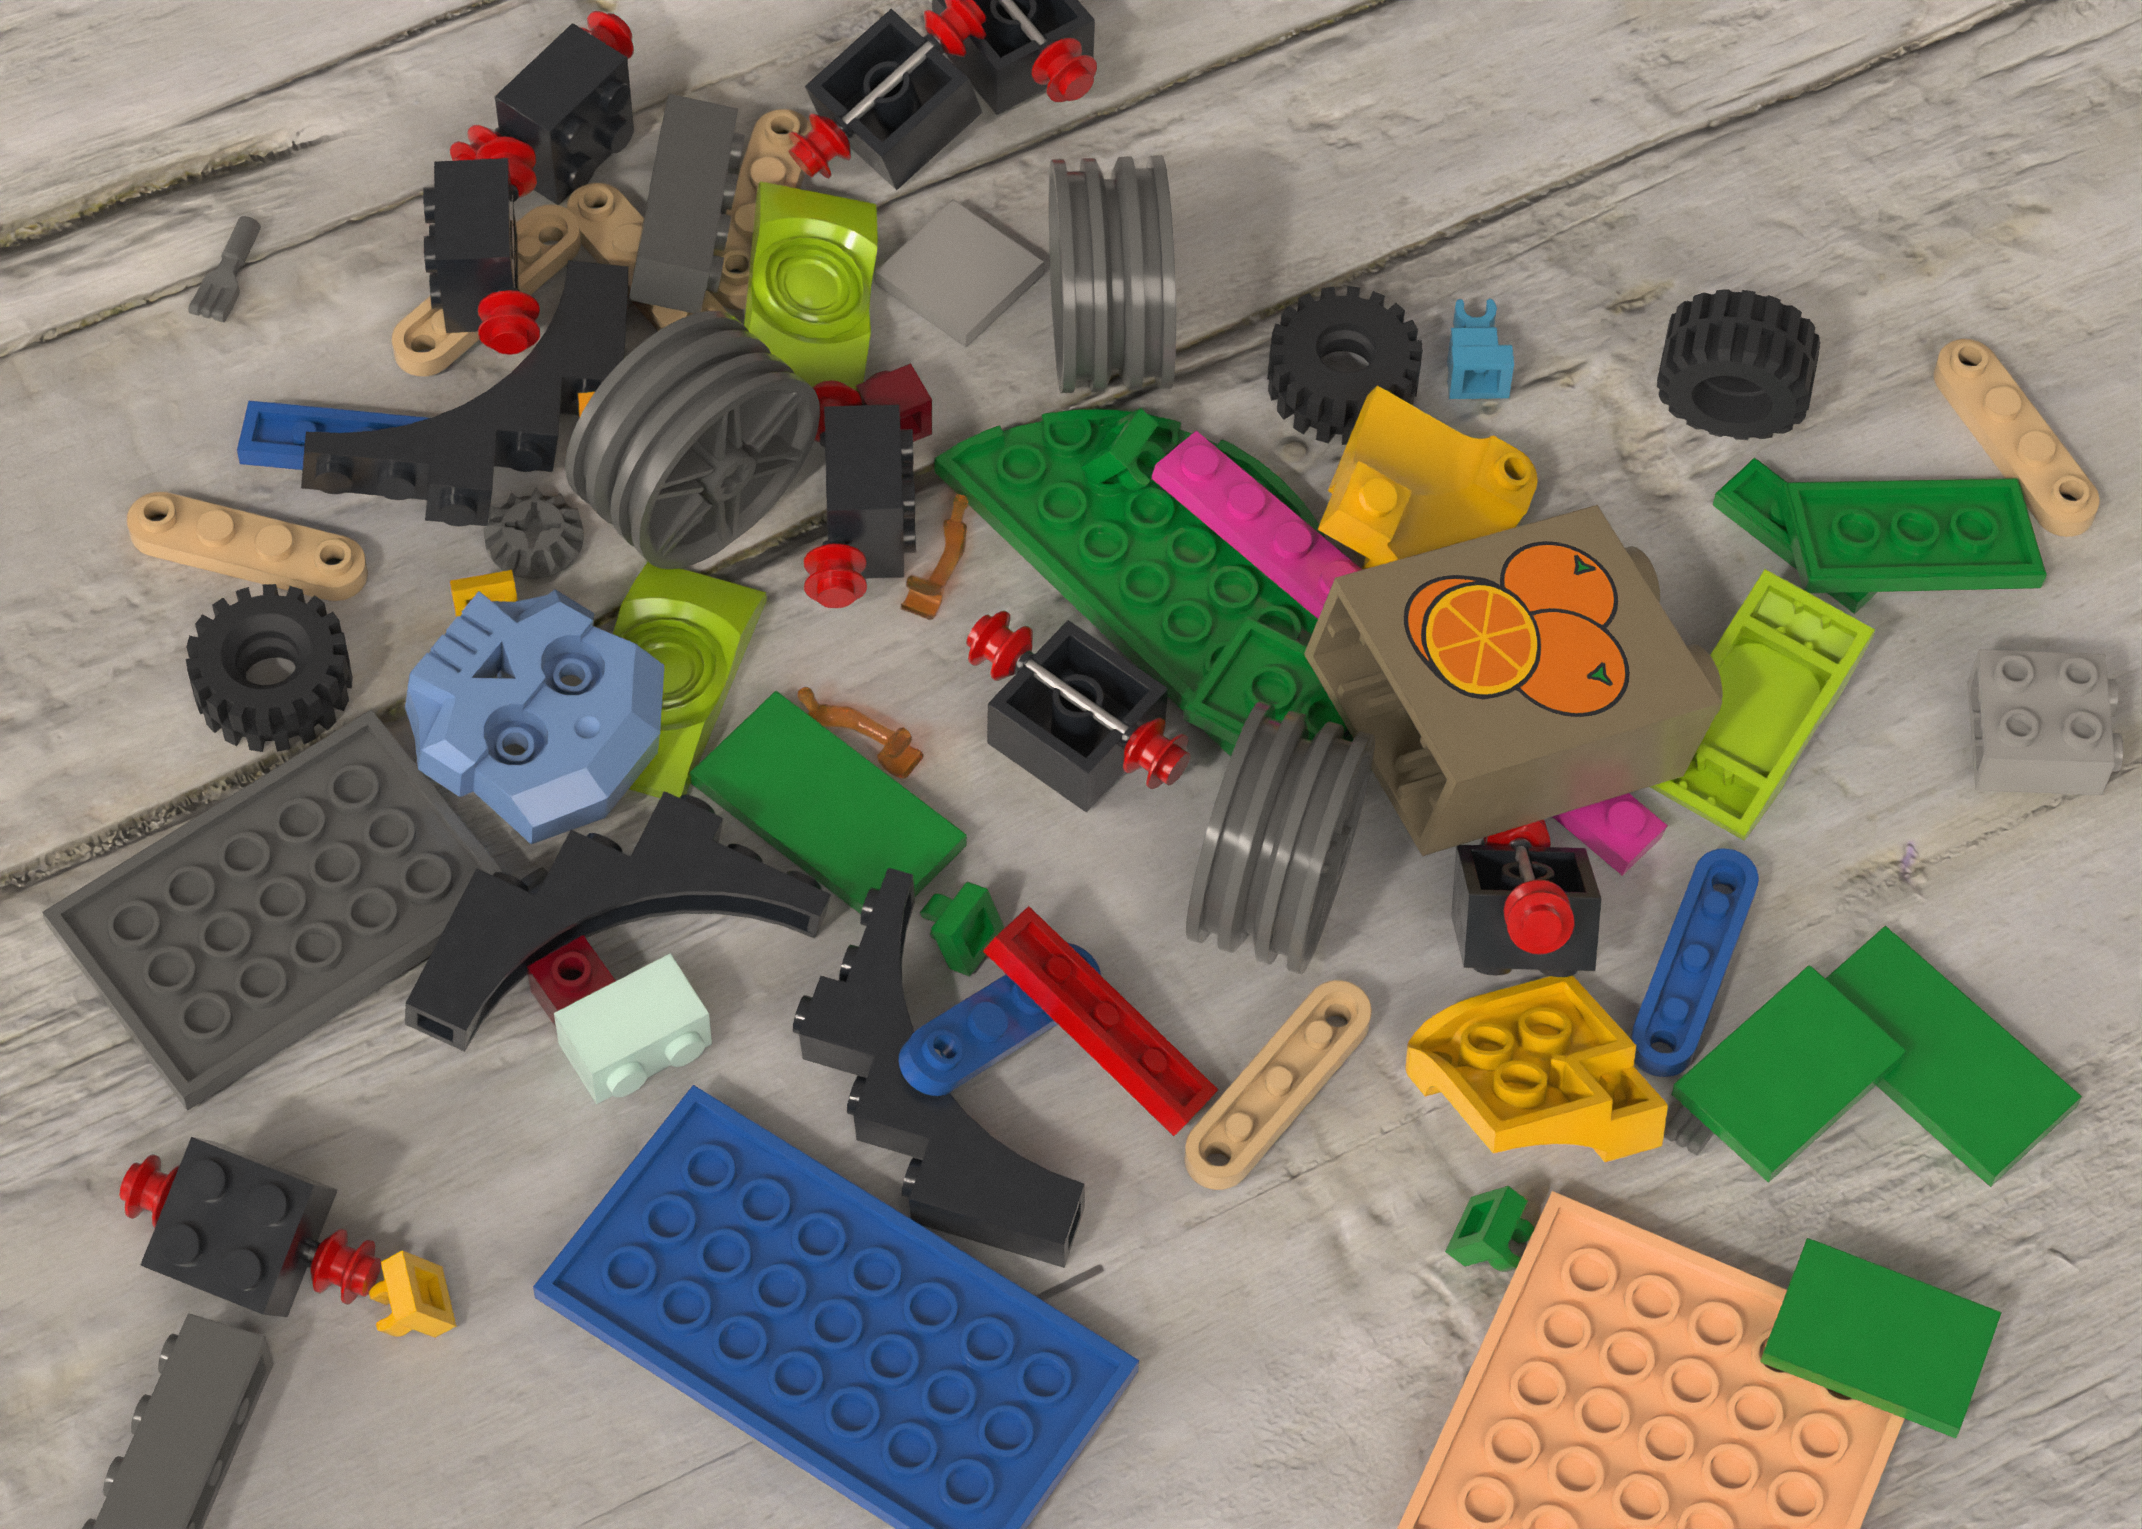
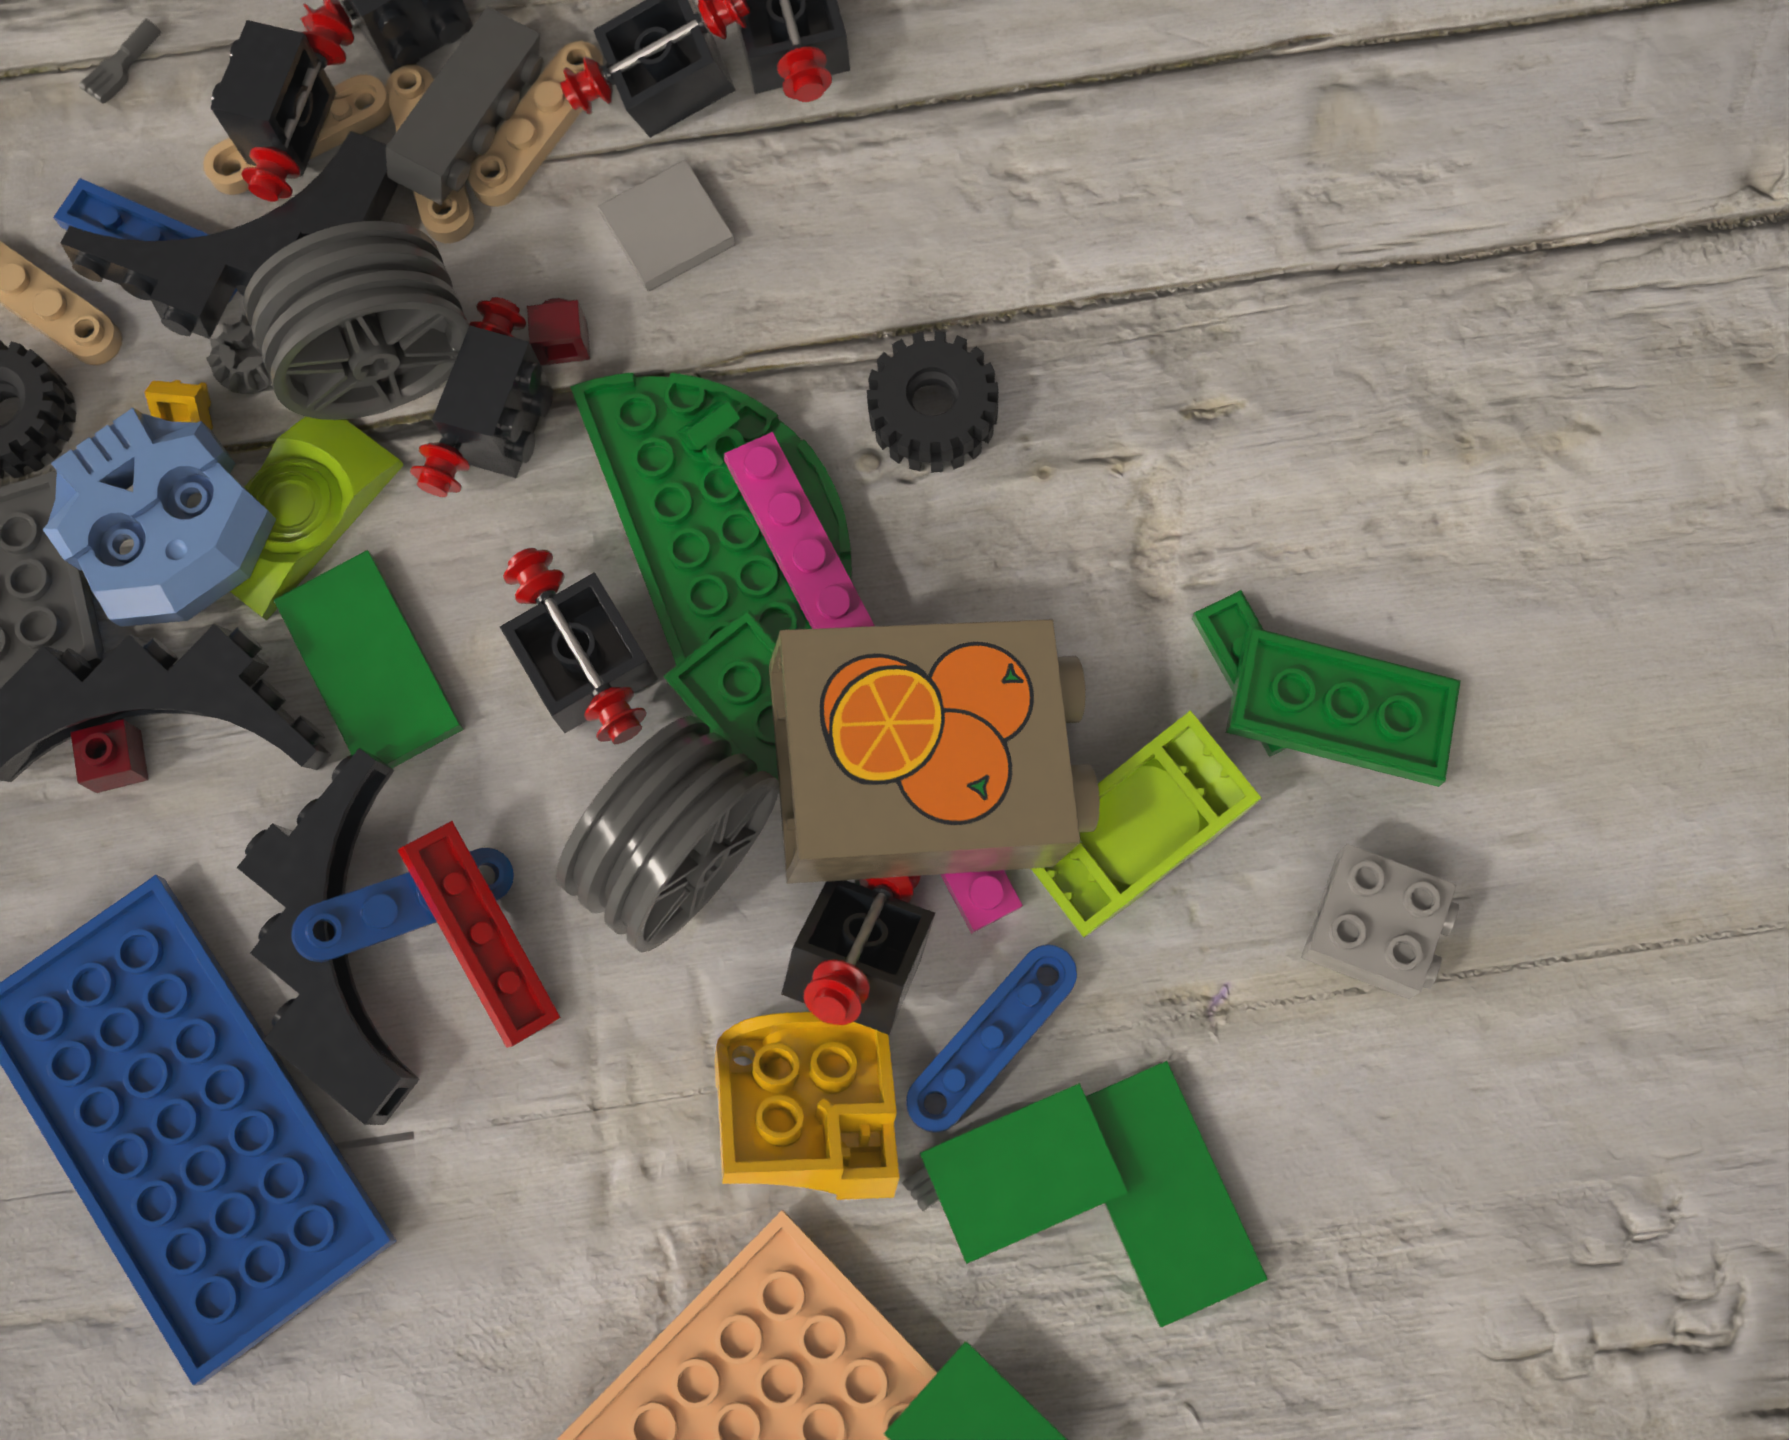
camera: 30 degrees right, 15 degrees up
(634, 1029) = (134, 810): light aqua brick -> none
(812, 281) = (534, 209): lime slope -> none
(895, 756) = (442, 631): clear orange piece -> none
(927, 595) = (521, 503): clear orange piece -> none
(963, 926) = (419, 806): green tile -> none
(1112, 274) = (748, 271): dark grey wheel -> none
(1277, 1084) = (607, 1030): tan plate -> none
(1421, 484) = (938, 545): yellow slope -> none
(1475, 360) = (1042, 427): dark azure piece -> none
(1488, 1227) = (717, 1223): green tile -> none
(1738, 364) = (1252, 509): black tyre -> none
(2016, 437) = (1477, 640): tan plate -> none

